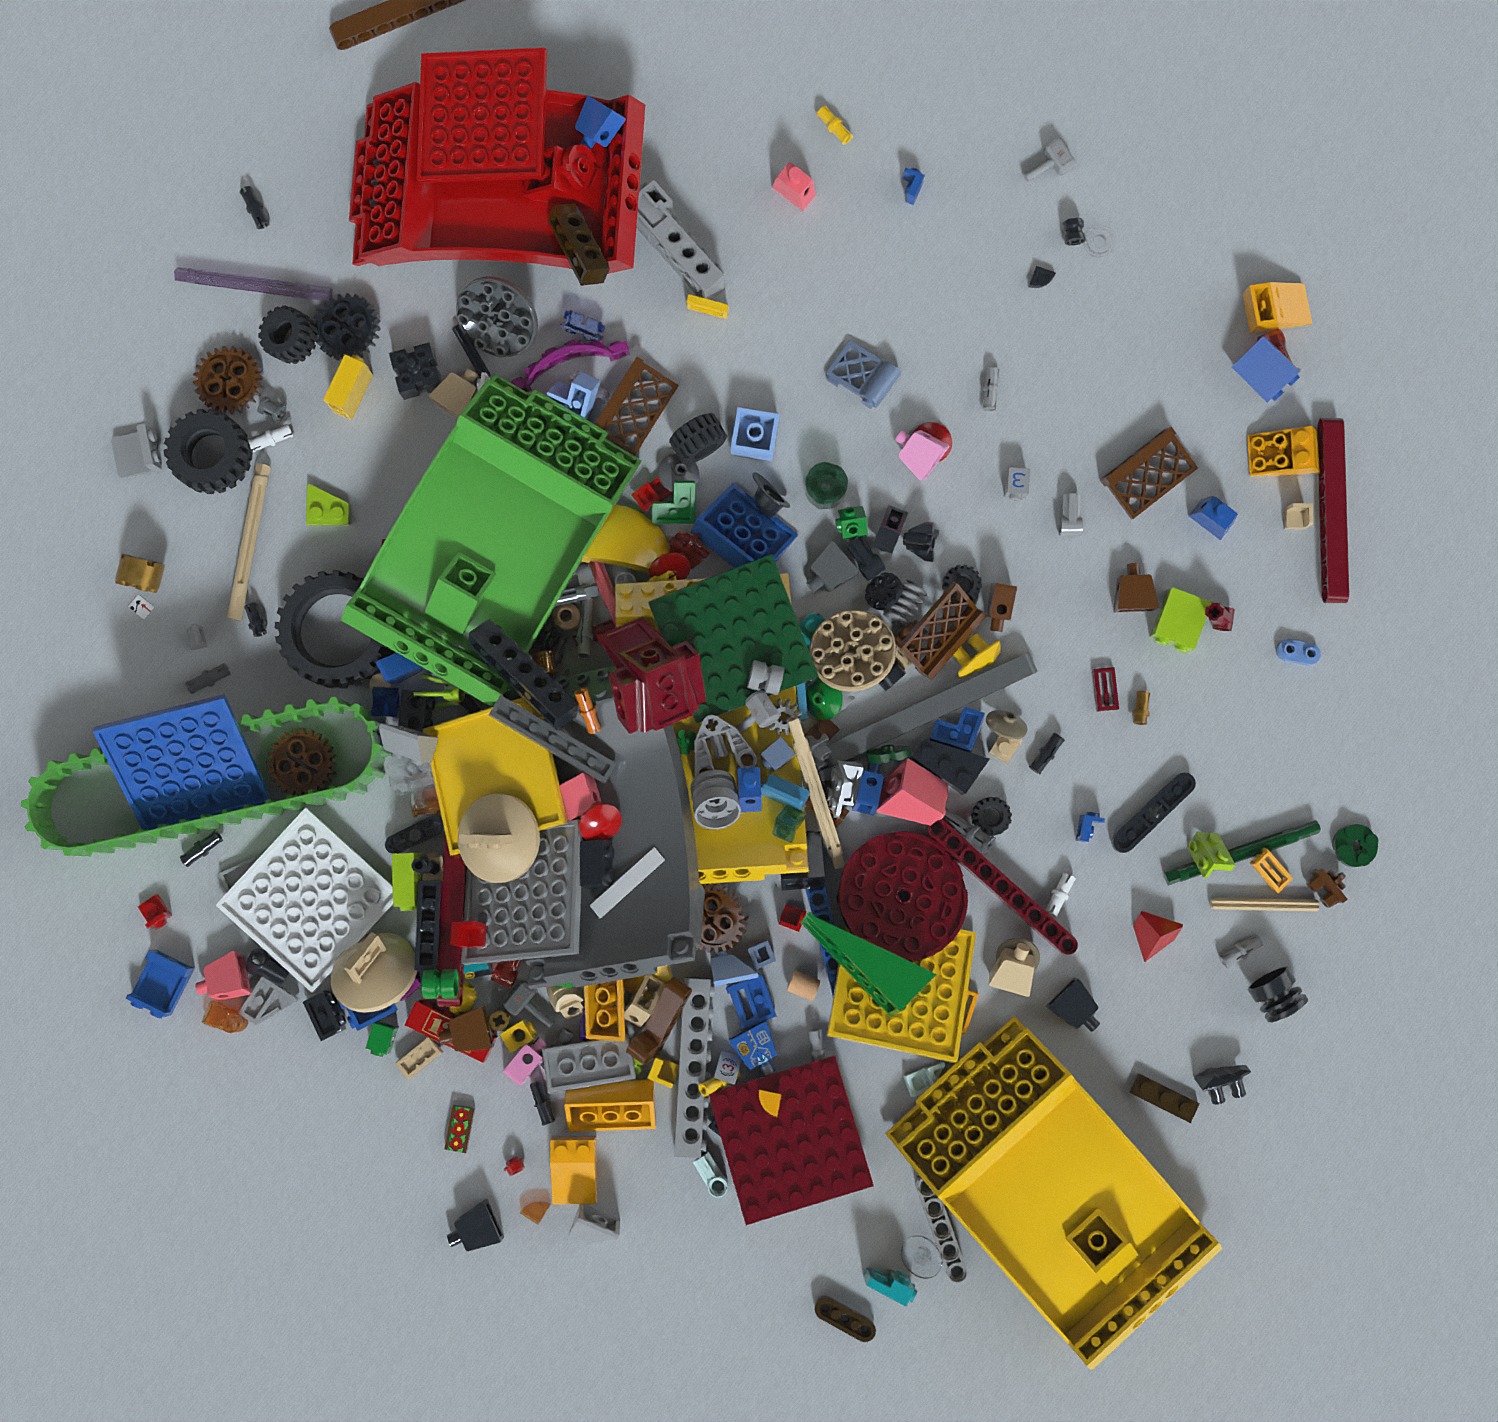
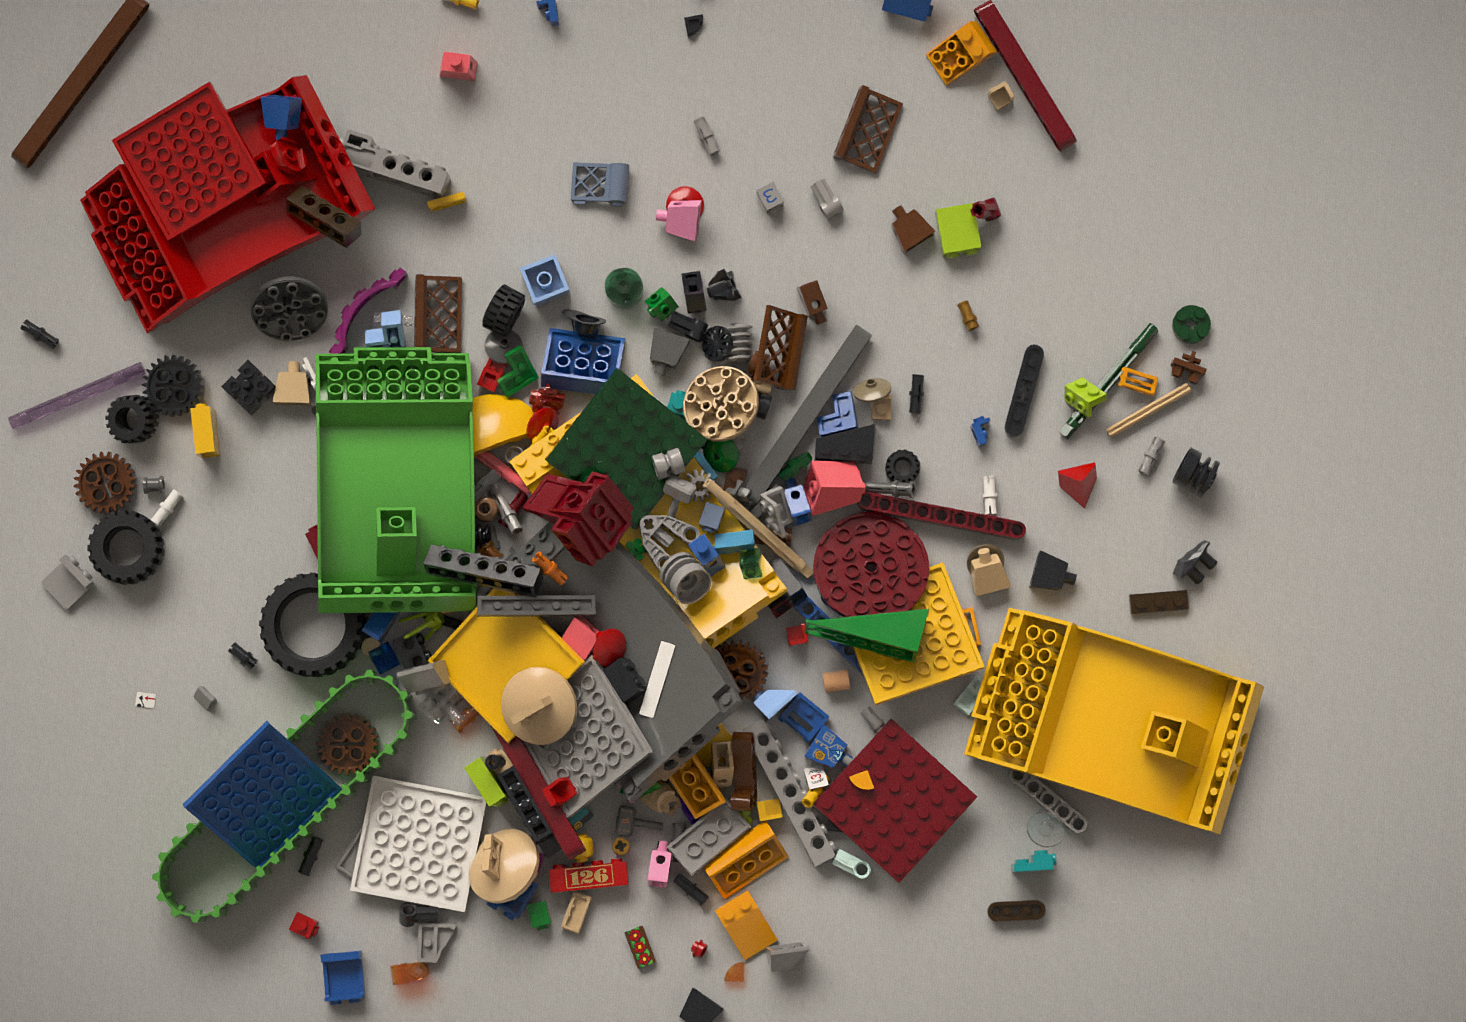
camera: 30 degrees left, 0 degrees up
(139, 573) = (131, 672): pearl gold brick -> none
(208, 678) = (234, 723): dark grey pin -> none
(225, 978) = (391, 941): coral torso -> none
(248, 542) = (214, 636): tan piece -> none
(325, 509) = (244, 537): lime wing -> none
(325, 1015) = (484, 923): black bracket -> none
(397, 836) = (461, 747): black beam -> none
(441, 984) = (561, 840): green wheel -> none
(469, 1031) = (603, 866): reddish brown torso -> none
(471, 351) = (282, 347): black axle -> none
(506, 973) = (603, 806): clear red piece -> none
(509, 1035) = (634, 853): yellow brick -> none
(574, 325) = (351, 277): clear blue hinge -> none
(761, 954) = (790, 676): sand blue brick -> none
(968, 573) = (770, 291): black tyre -> none
(986, 656) = (825, 348): yellow connector -> none
(1106, 707) = (941, 330): dark red tile -> none
(1214, 516) = (936, 134): blue torso -> none
(1298, 653) = (1062, 200): medium blue plate -> none

